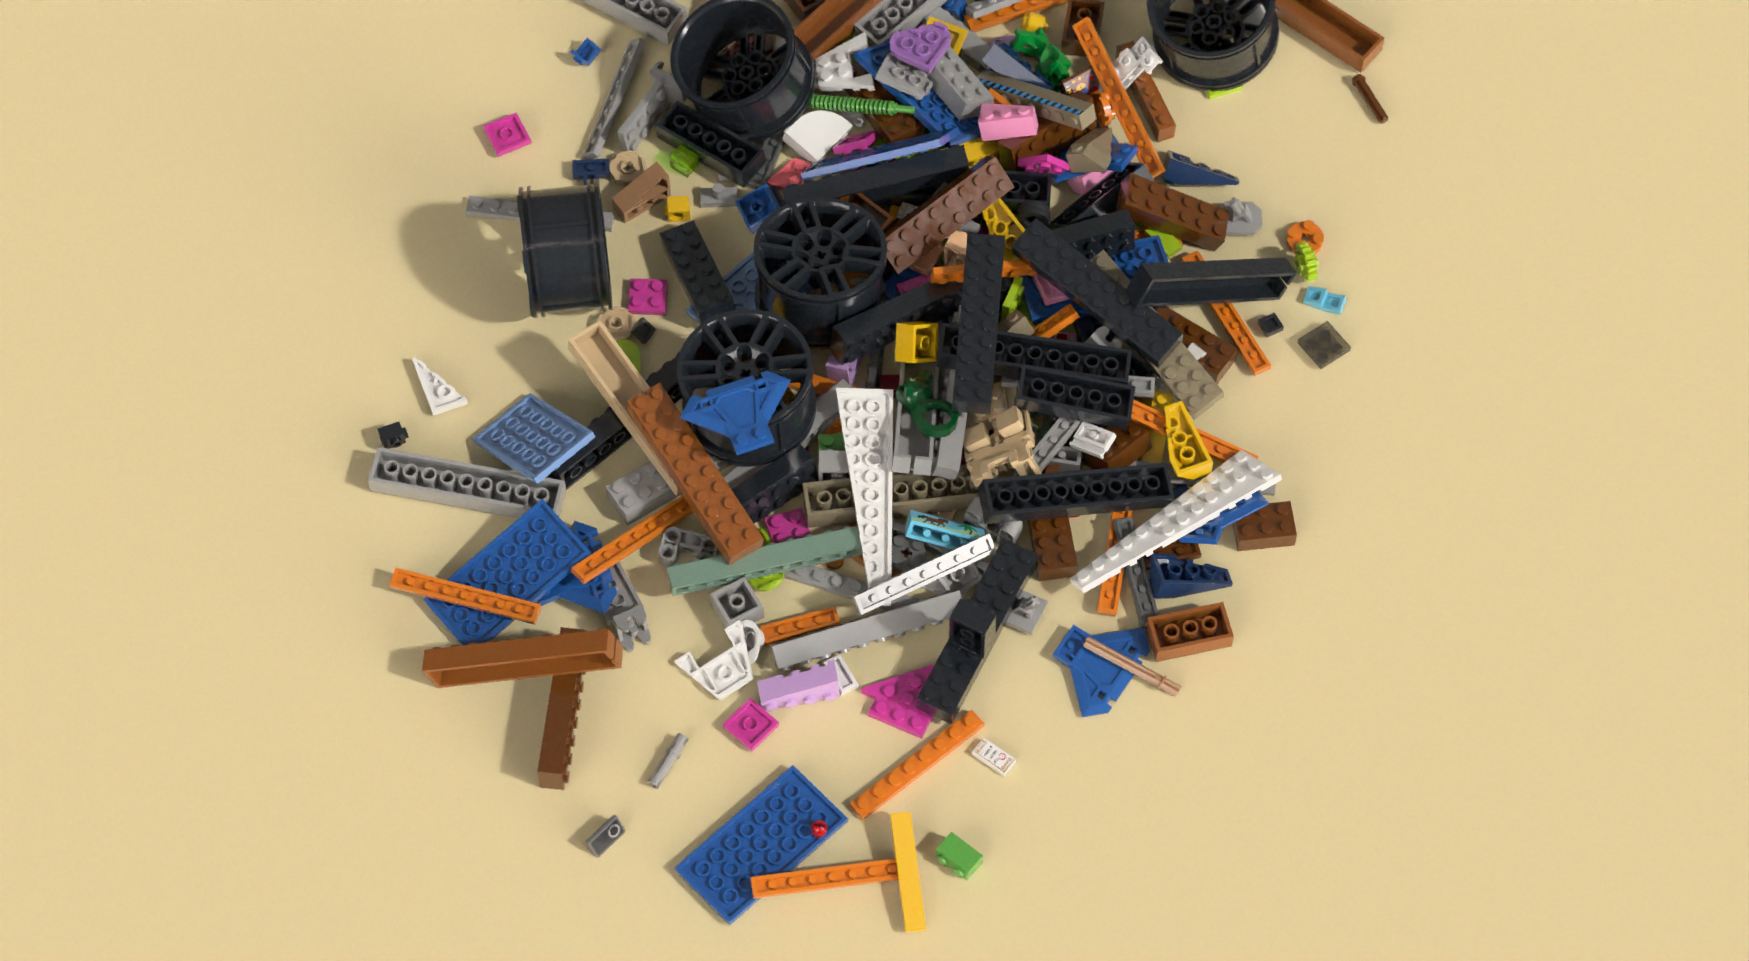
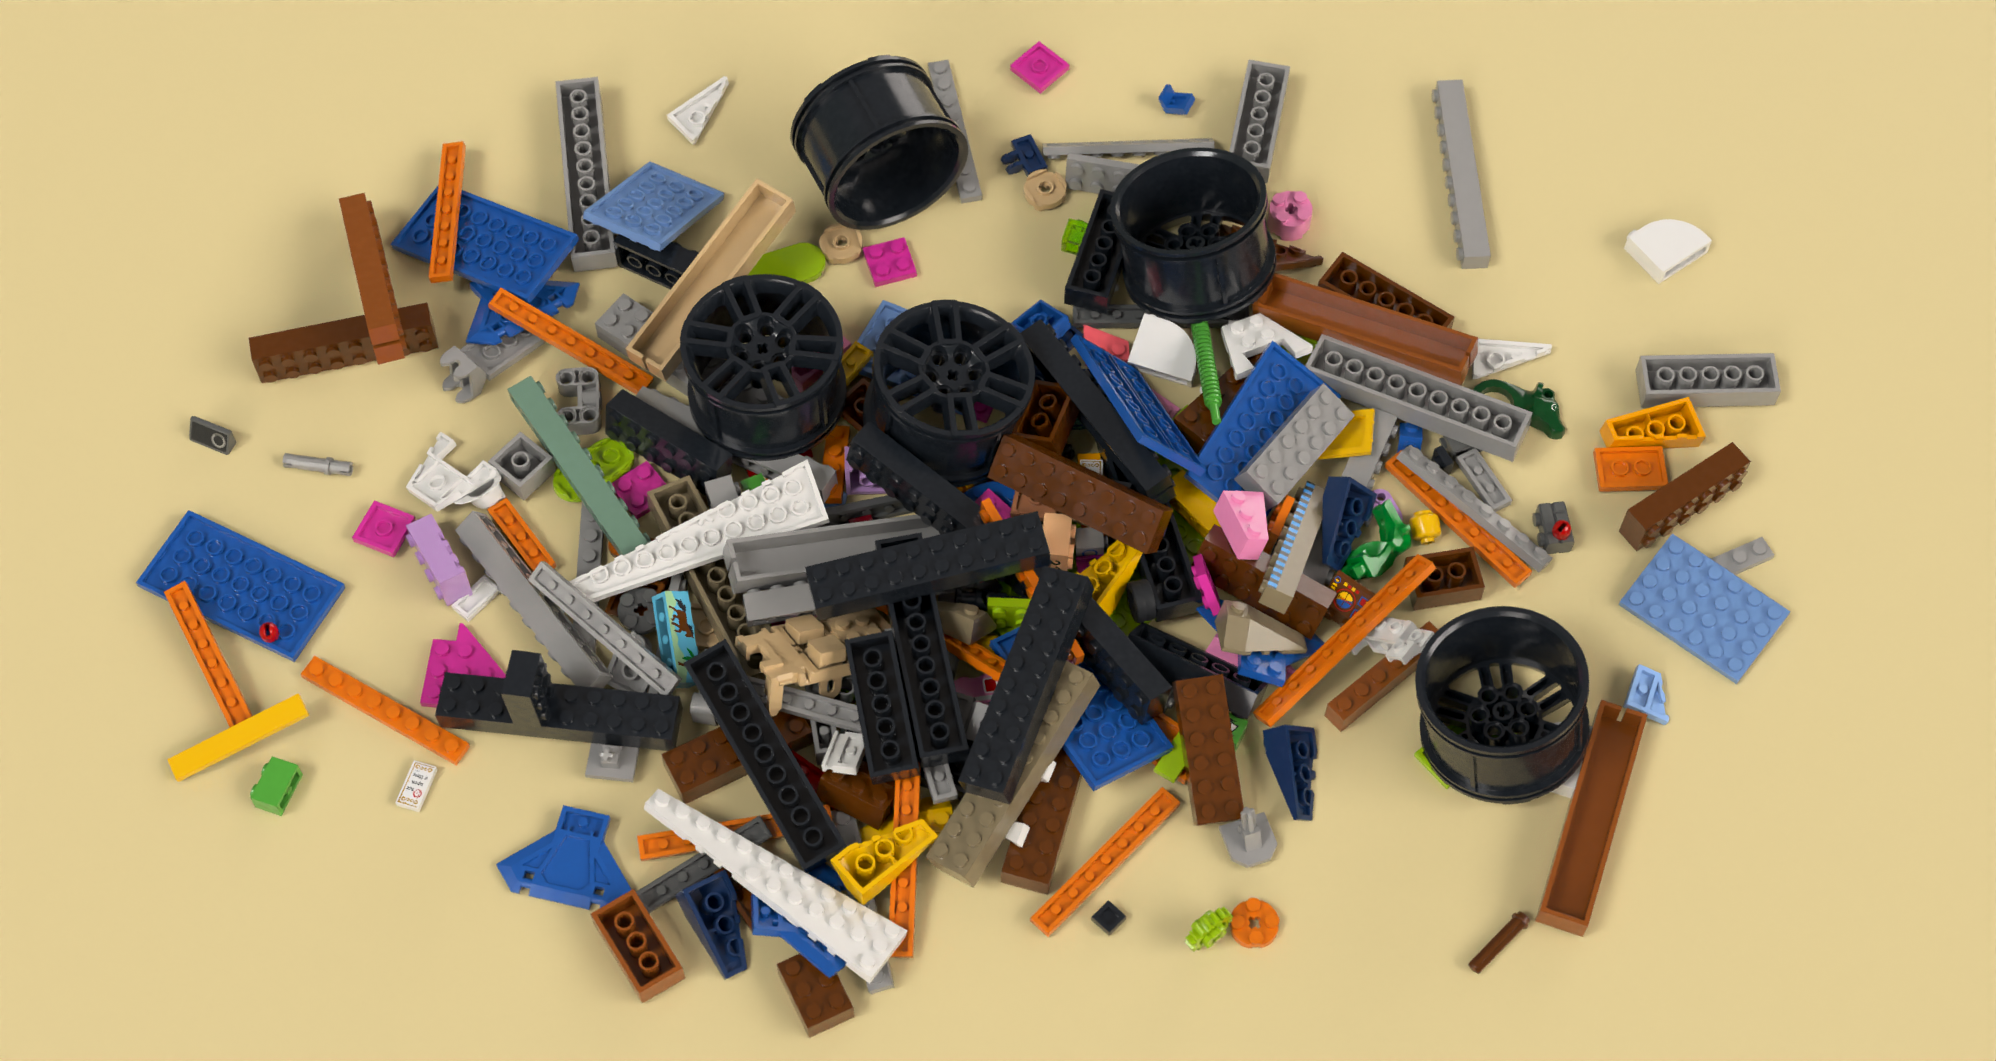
camera: 70 degrees right, 0 degrees up
(392, 435) = (625, 90): black brick -> none
(642, 193) = (1013, 211): medium nougat wedge -> none
(643, 330) = (841, 270): pearl dark grey tile -> none
(677, 208) = (1011, 252): yellow brick -> none
(694, 474) = (634, 359): dark orange piece -> none
(696, 271) = (948, 276): black brick -> none
(718, 196) = (1046, 286): light grey tile -> none
(739, 410) = (699, 351): blue plate -> none
(858, 141) = (1165, 389): dark pink plate -> none
(904, 77) = (1264, 398): light grey plate -> none
(916, 342) = (898, 516): yellow brick -> none
(918, 398) = (824, 545): dark green animal -> none
(921, 46) = (1306, 400): medium lavender plate -> none
(1103, 111) = (1328, 629): orange plate -> none
(1132, 666) = (574, 892): medium nougat axle -> none
(1210, 281) = (1103, 811): black piece -> none
(1324, 301) = (1172, 973): medium azure slope -> none
(1324, 345) = (1104, 989): clear smoke plate -> none

